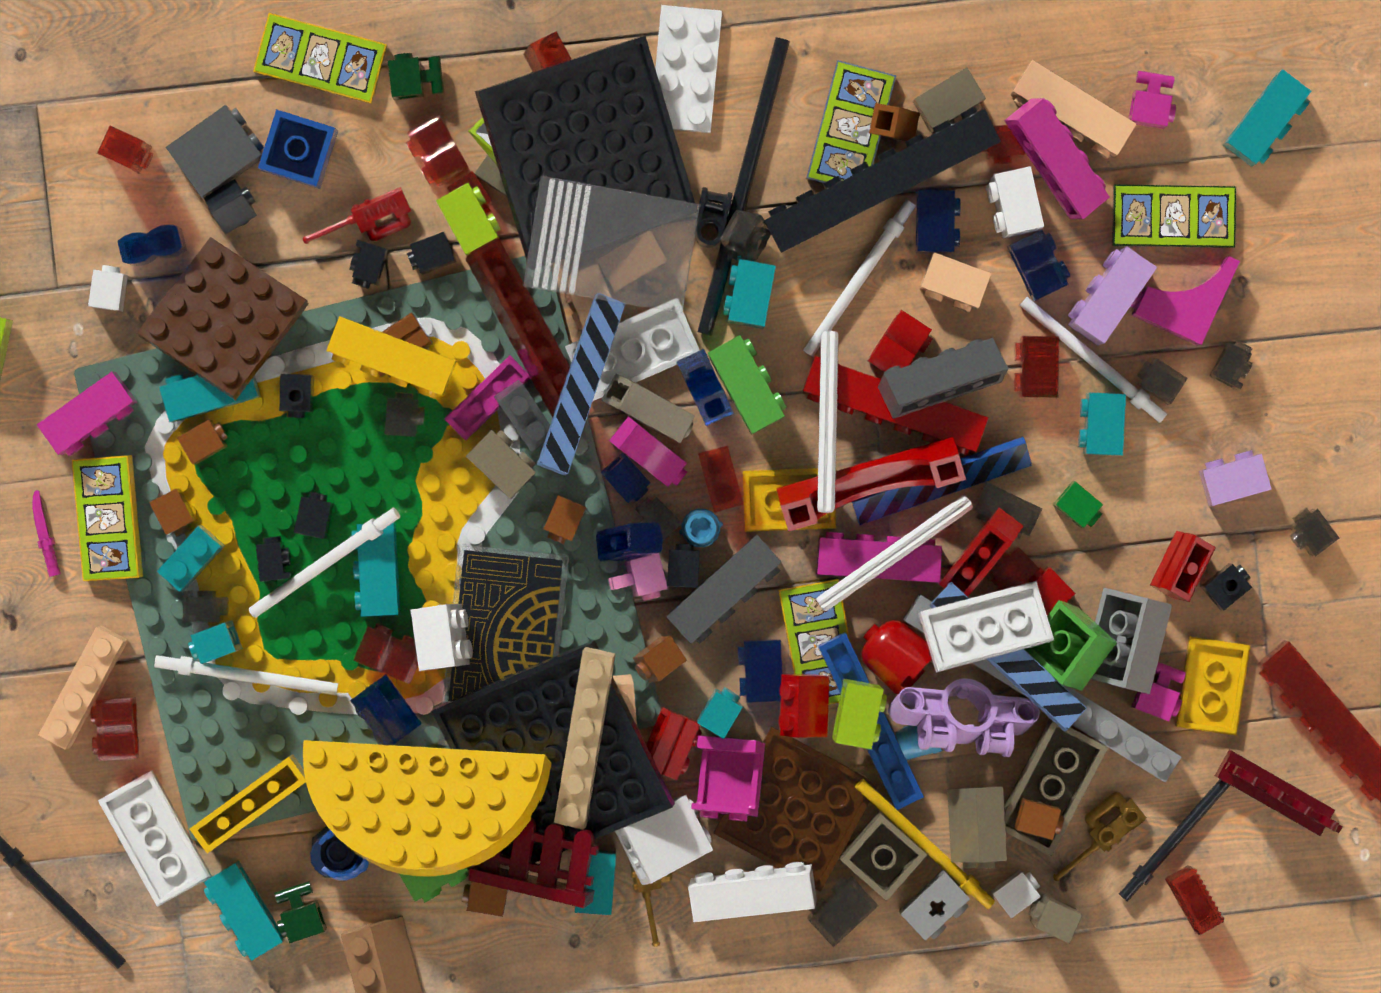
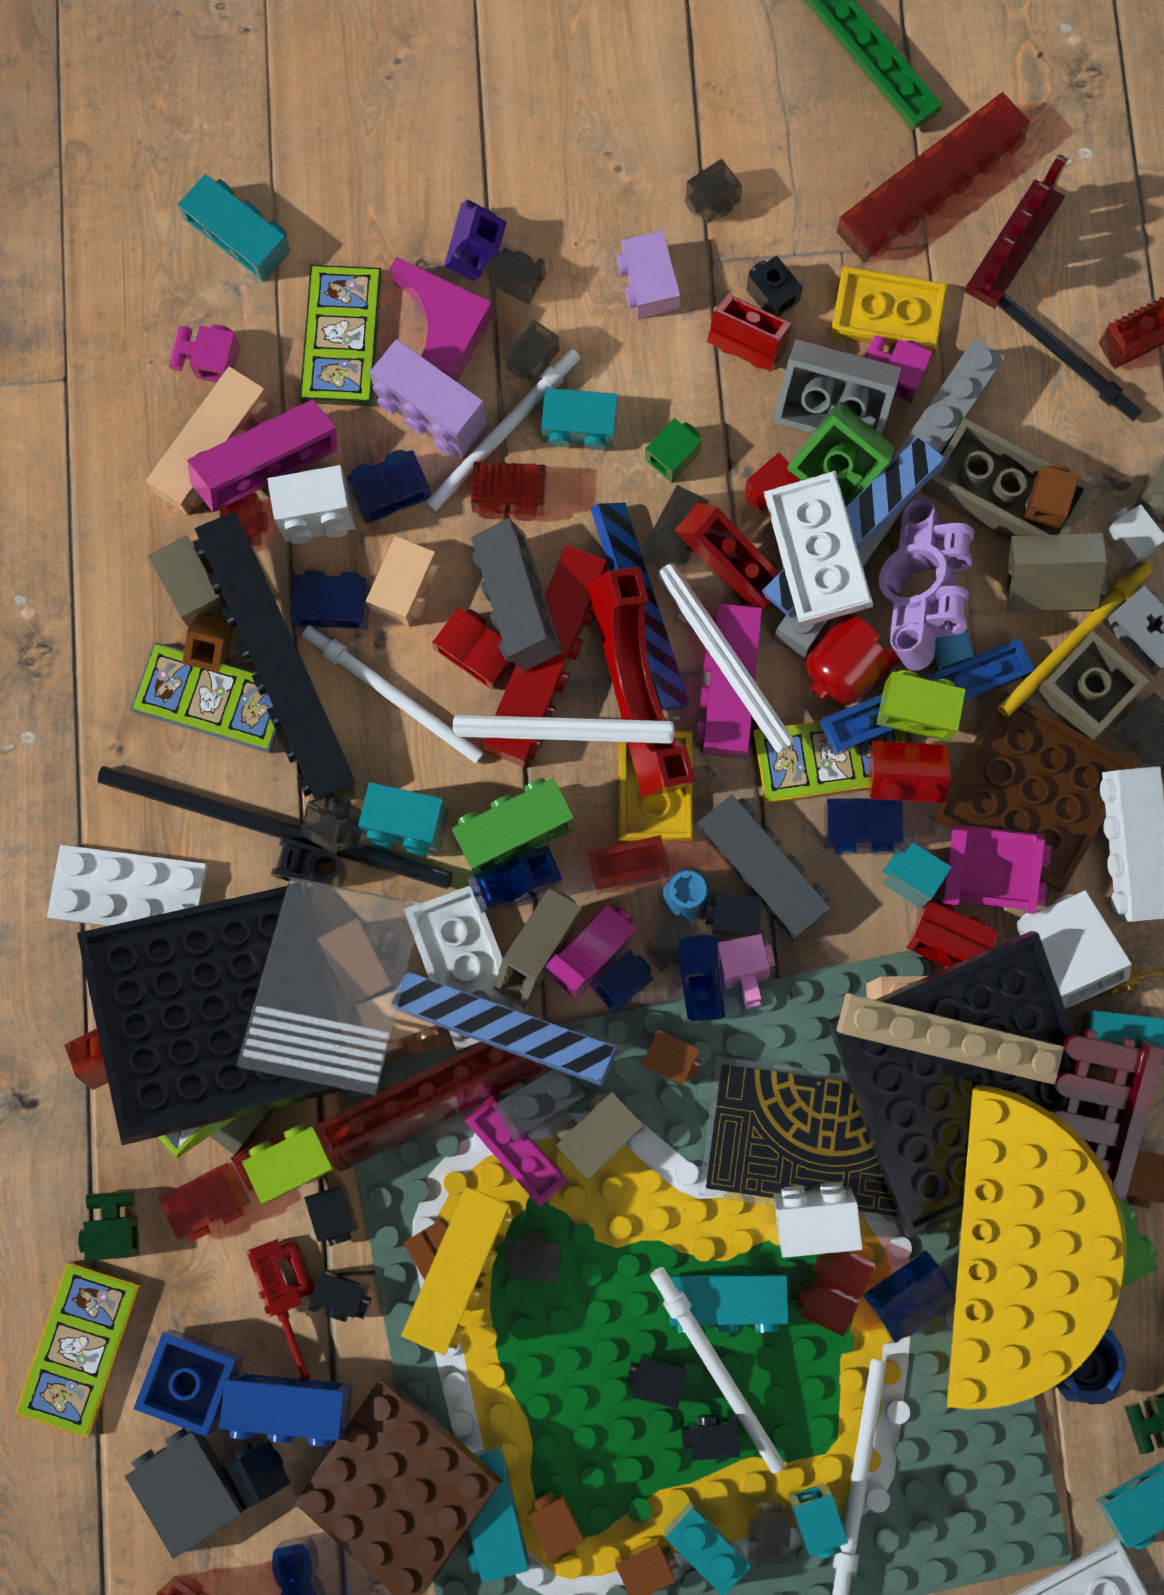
camera: 85 degrees left, 10 degrees down
(249, 804) = (1029, 1484): yellow brick -> none
(281, 227) = (285, 1408): none -> blue brick
(296, 394) = (500, 1397): black brick -> none
(659, 659) = (848, 948): dark orange brick -> none
(1013, 569) = (752, 522): clear red brick -> none
(1111, 833) = (1059, 425): pearl gold piece -> none
(1261, 327) = (474, 240): none -> dark purple brick

